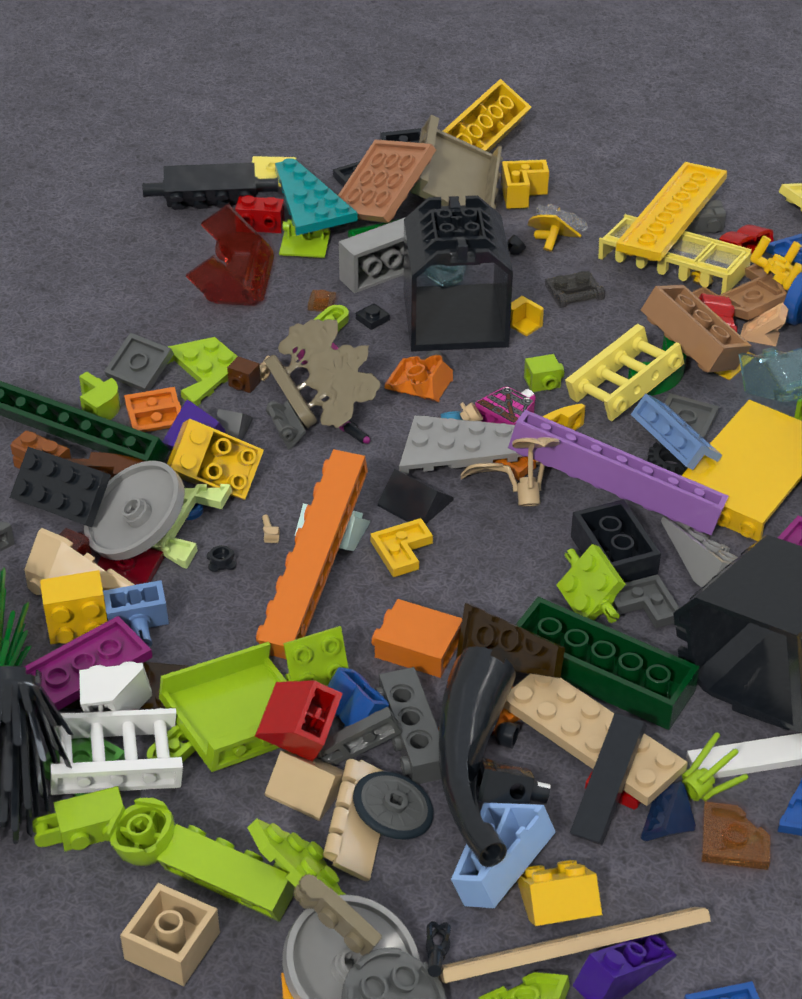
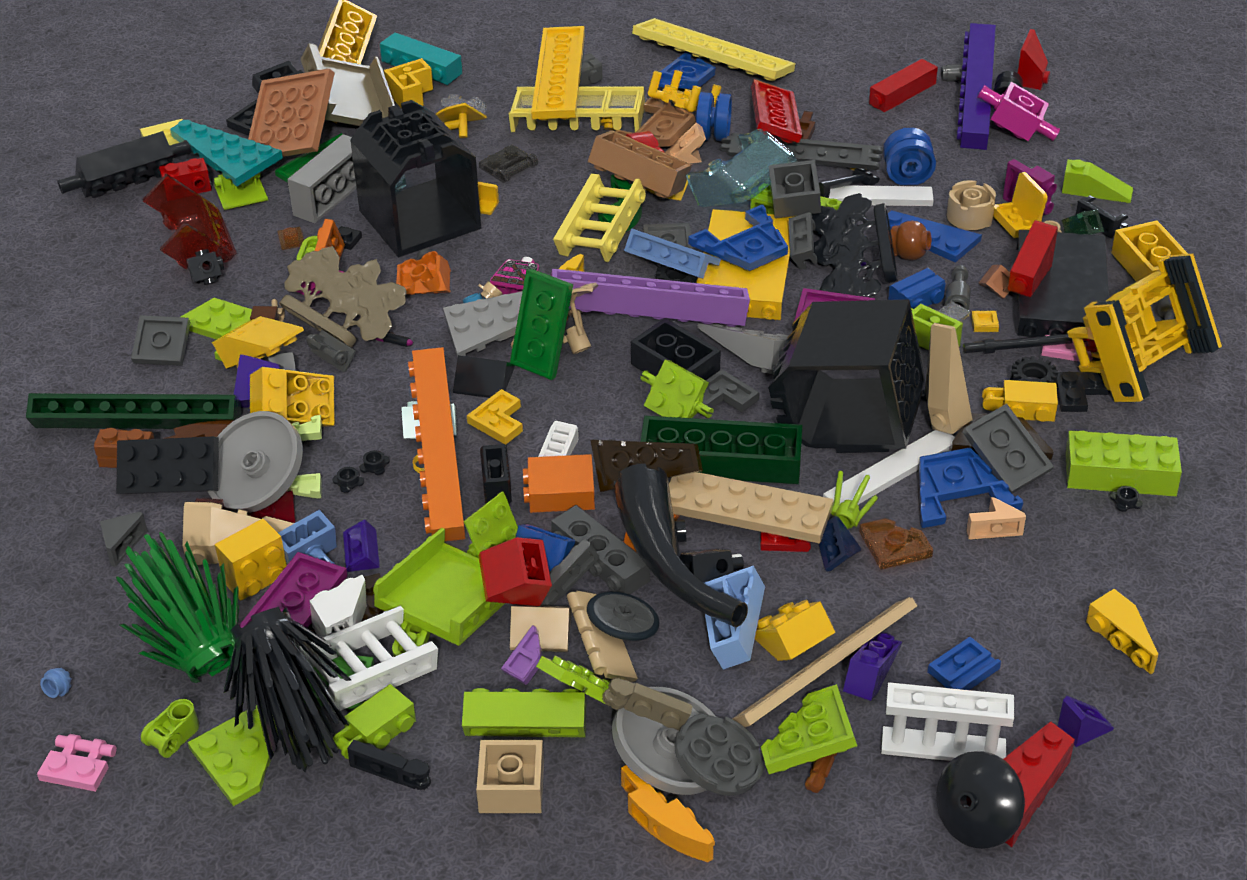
camera: 25 degrees left, 0 degrees up
(70, 872) = (389, 765): none -> black hinge
(99, 396) = (141, 379): lime brick -> none
(141, 831) = (436, 709): lime cylinder -> none
(152, 409) = (200, 376): orange slope -> none
(191, 633) = (361, 547): none -> dark purple slope
(213, 304) = (198, 273): none -> black brick
(216, 389) = (255, 340): none -> yellow slope
(255, 550) = (374, 462): none -> black plate
(271, 534) = (375, 444): tan hand -> none
(272, 807) = (525, 657): none -> medium lavender tile
(348, 316) = (328, 236): none -> orange wing
(357, 605) = (495, 471): none -> black brick
(435, 952) = (728, 708): black piece -> none
(452, 585) = (561, 433): none -> white slope
(488, 463) = (541, 323): none -> green tile
(543, 373) = (527, 240): lime brick -> none
(564, 169) = (402, 49): none -> teal brick
(608, 779) = (783, 532): black tile -> none
(747, 236) = (632, 77): red brick -> none
(759, 452) = (748, 248): none -> blue wing

